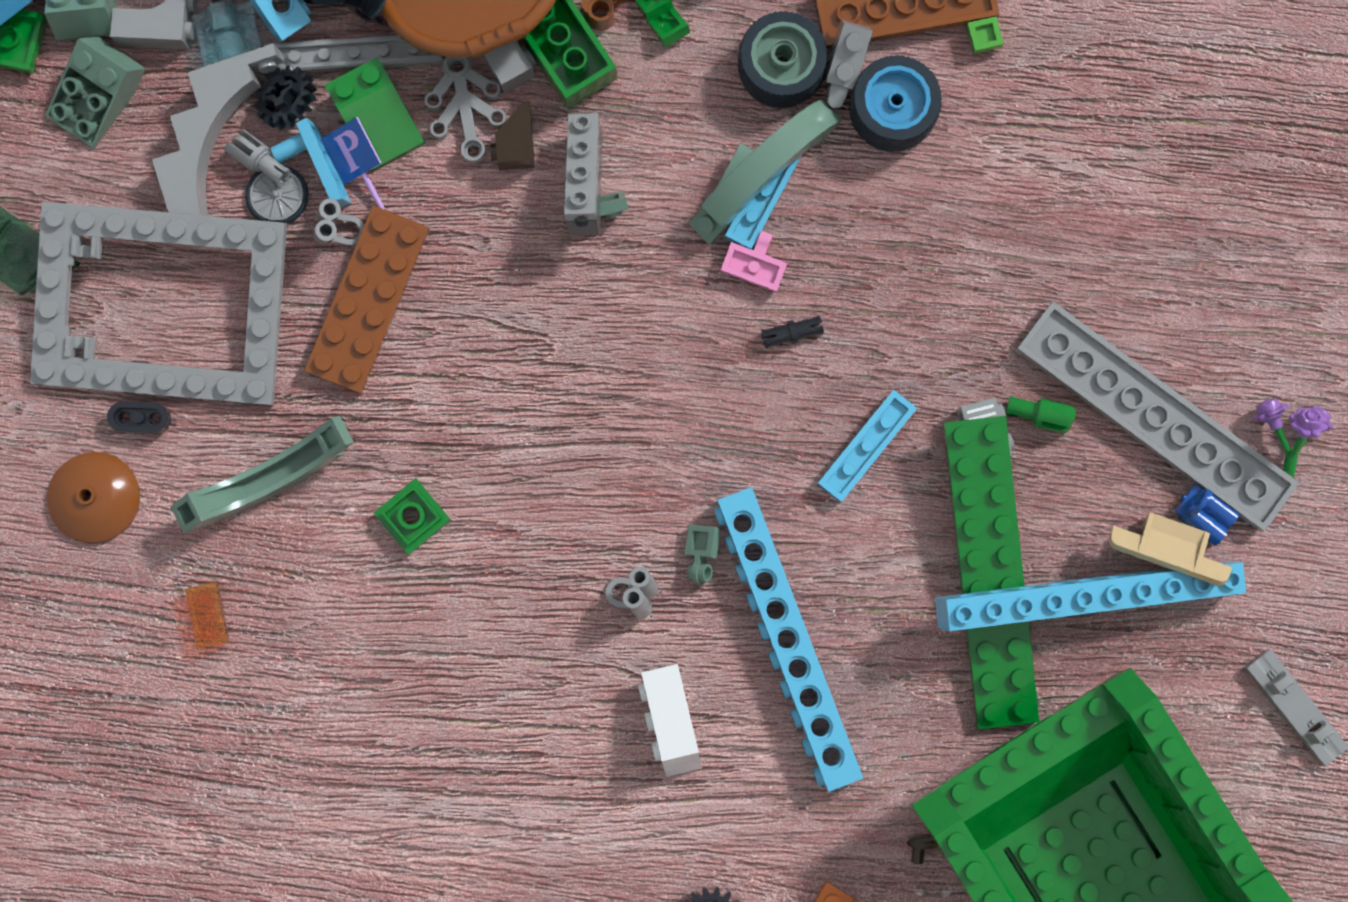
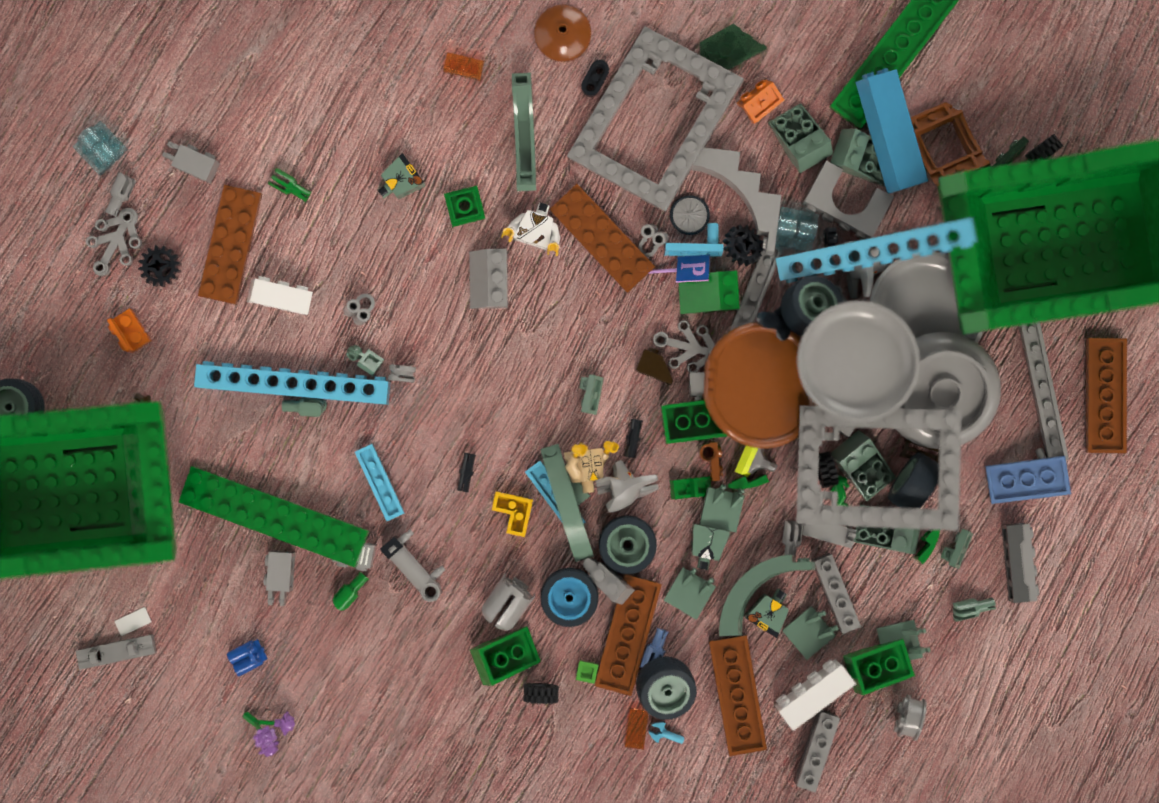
camera: 115 degrees right, 5 degrees up
(65, 170) = (760, 100): none -> orange bracket
(256, 157) = (714, 214): light grey arm -> none
(398, 395) = (535, 229): none -> white torso
(415, 626) = (400, 179): none -> sand green torso
(501, 430) = (489, 279): none -> light grey slope
(501, 781) = (291, 187): none -> green arm
(583, 174) = (612, 394): light grey piece -> none
(629, 833) = (230, 244): none -> dark orange plate
(631, 124) = (633, 438): none -> black pin
(695, 493) = (403, 371): none -> light grey wheel
(698, 165) = (588, 464): none -> tan torso
(704, 100) = (625, 487): none -> light grey piece
(754, 265) = (515, 469): bright pink plate -> none
(807, 232) = (519, 511): none -> yellow brick
(812, 604) = (305, 406): none -> sand green arm
(946, 184) = (499, 596): none -> light grey cylinder
(965, 342) = (411, 568): none -> light grey piece
(1022, 155) = (505, 656): none -> green slope
(1047, 79) = (540, 693): none -> black tyre
(1066, 524) = (279, 574): none -> light grey hinge
(1079, 597) = (231, 564): medium azure brick -> none
(1157, 416) = (316, 657): light grey plate -> none
(1171, 546) = (235, 624): tan plate -> none
(1240, 705) = (133, 621): none -> white sticker

